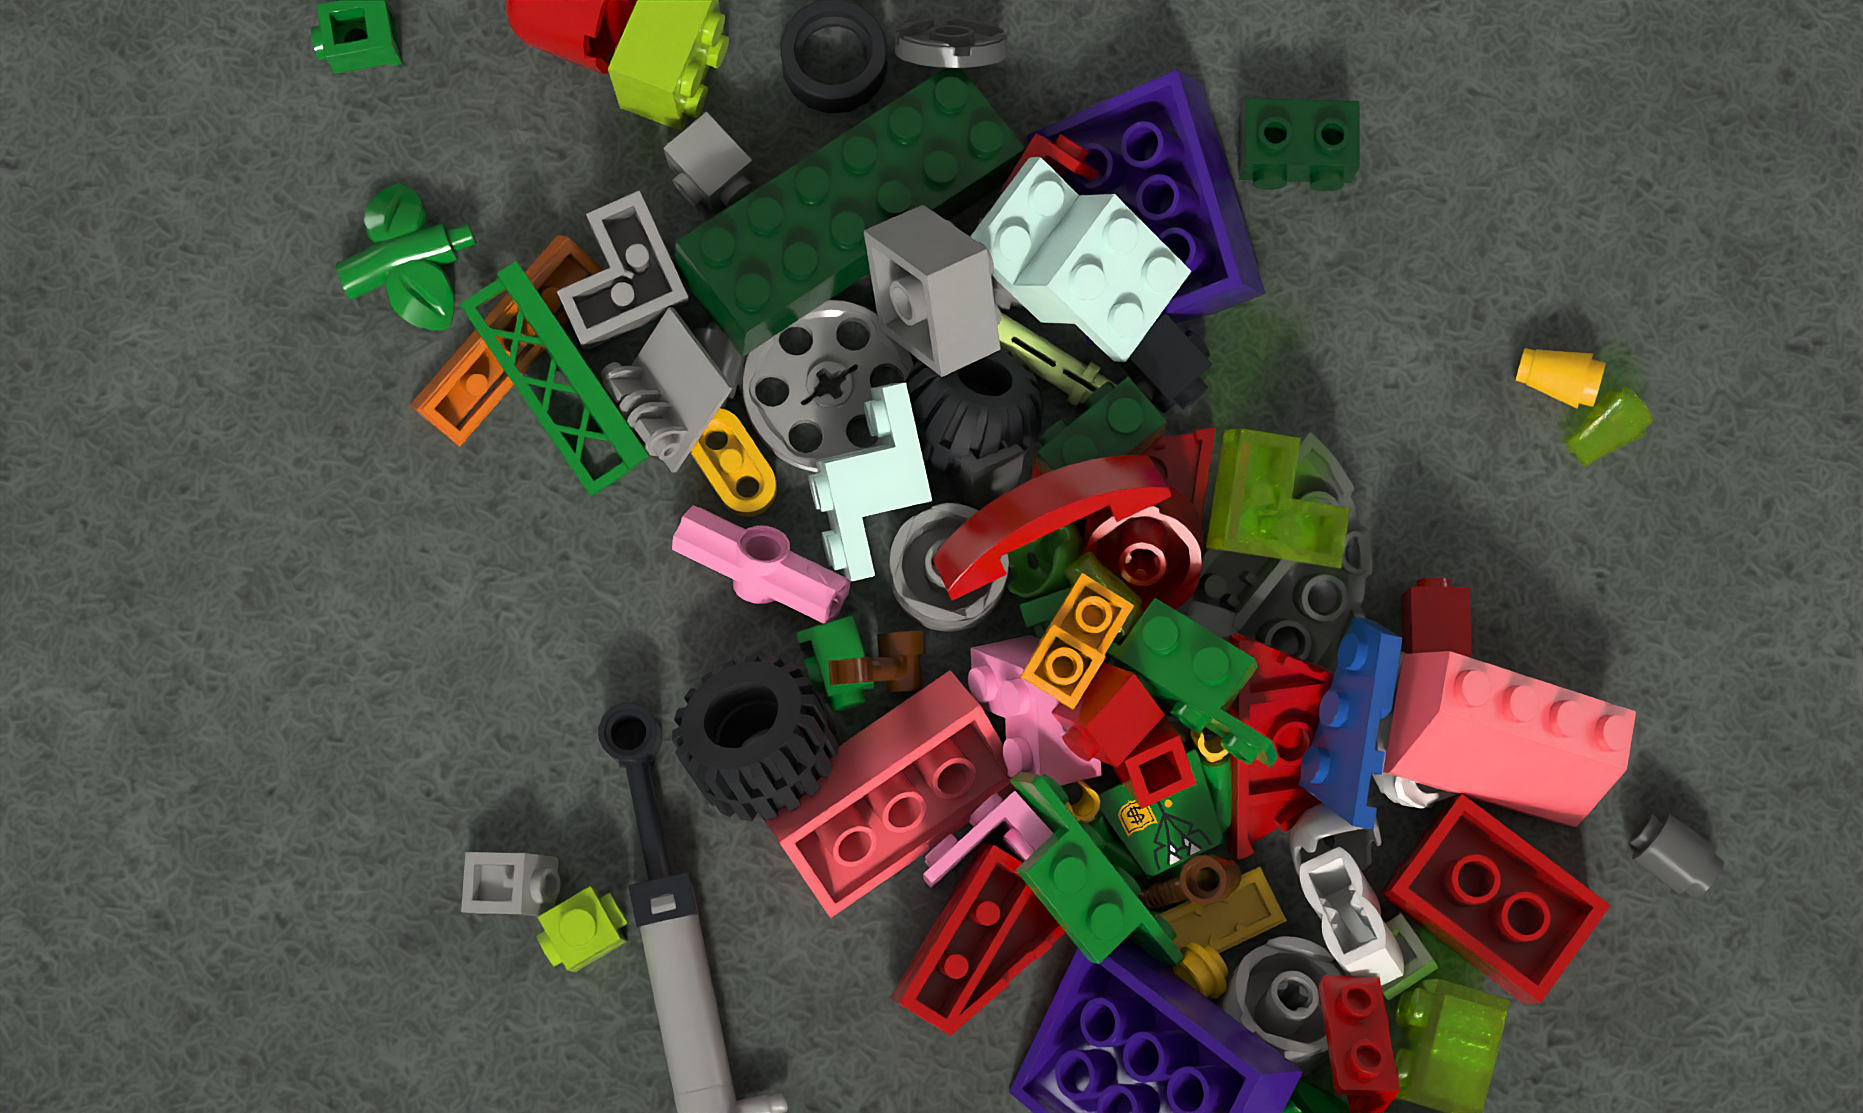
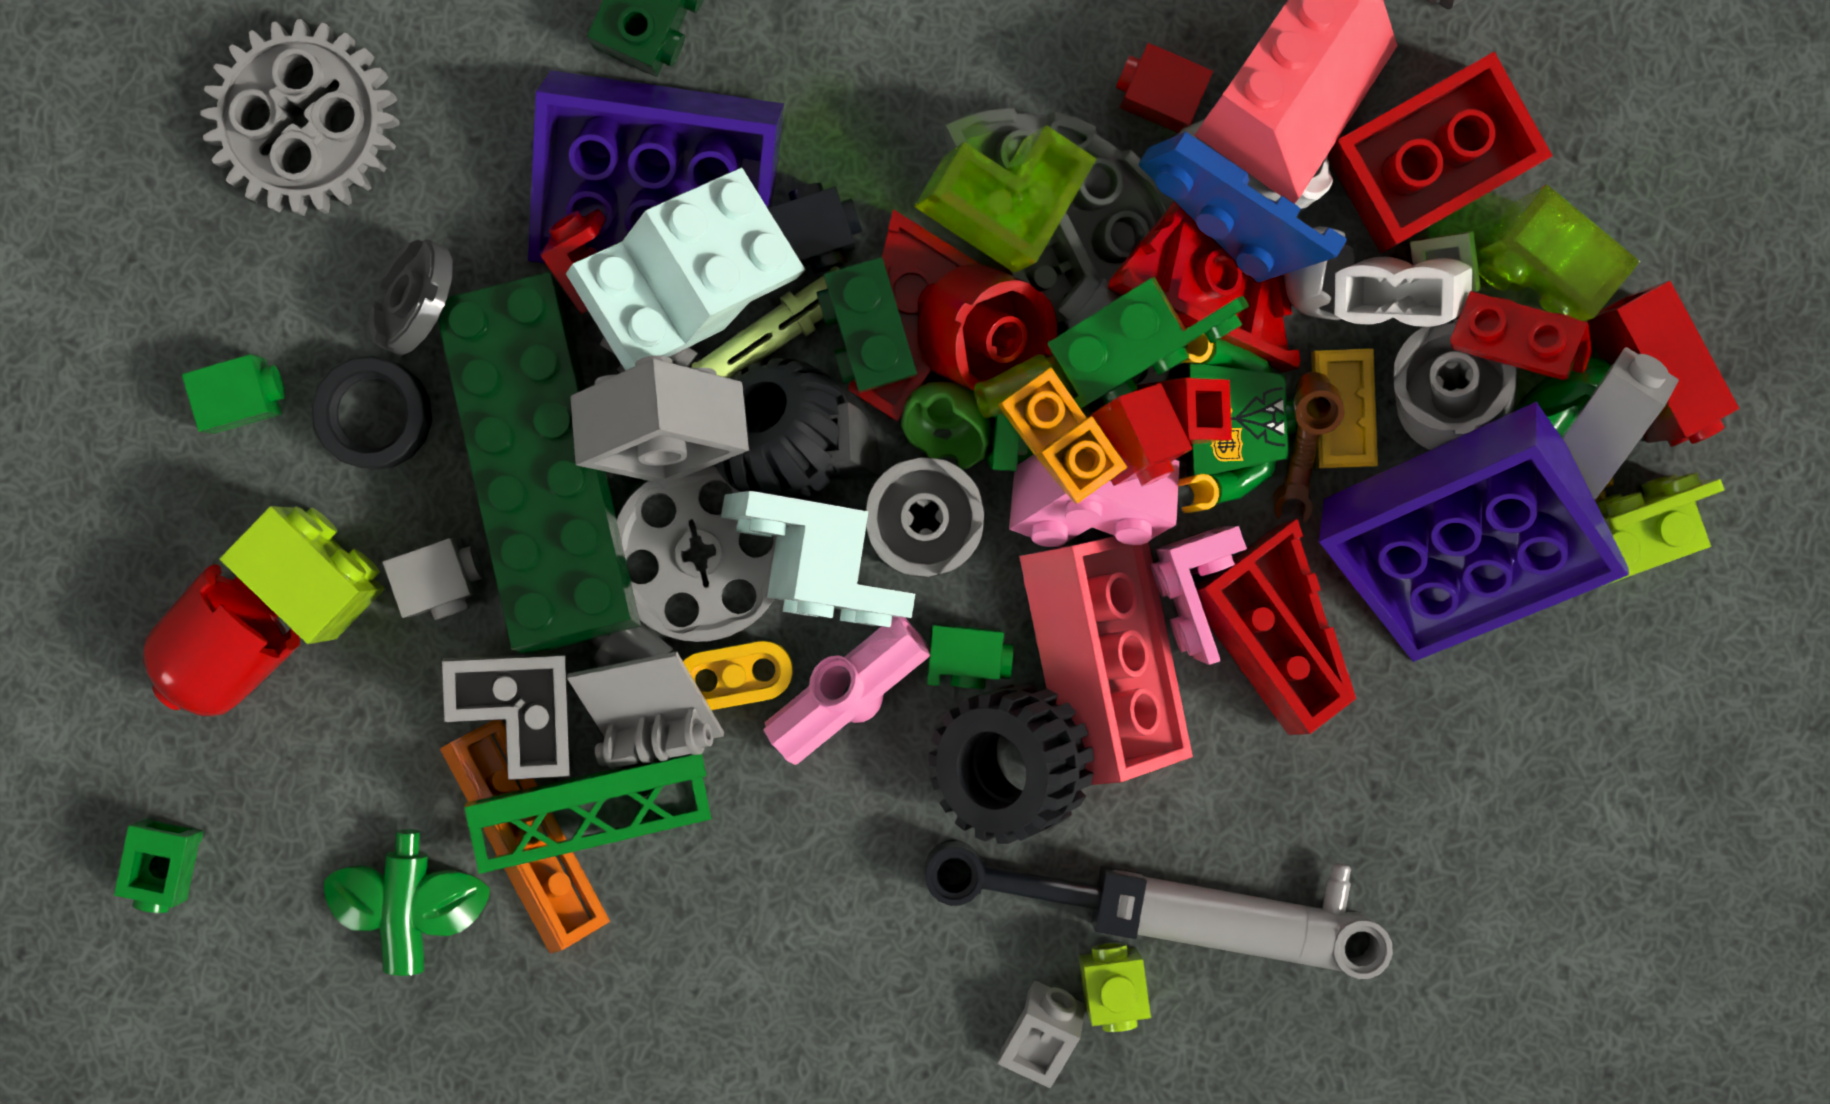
camera: 65 degrees left, 10 degrees up
(896, 663) = (997, 603): reddish brown brick -> none
(1040, 507) = (920, 410): red slope -> none
(1081, 886) = (1282, 527): green bracket -> none
(1203, 969) = (1390, 446): yellow plate -> none

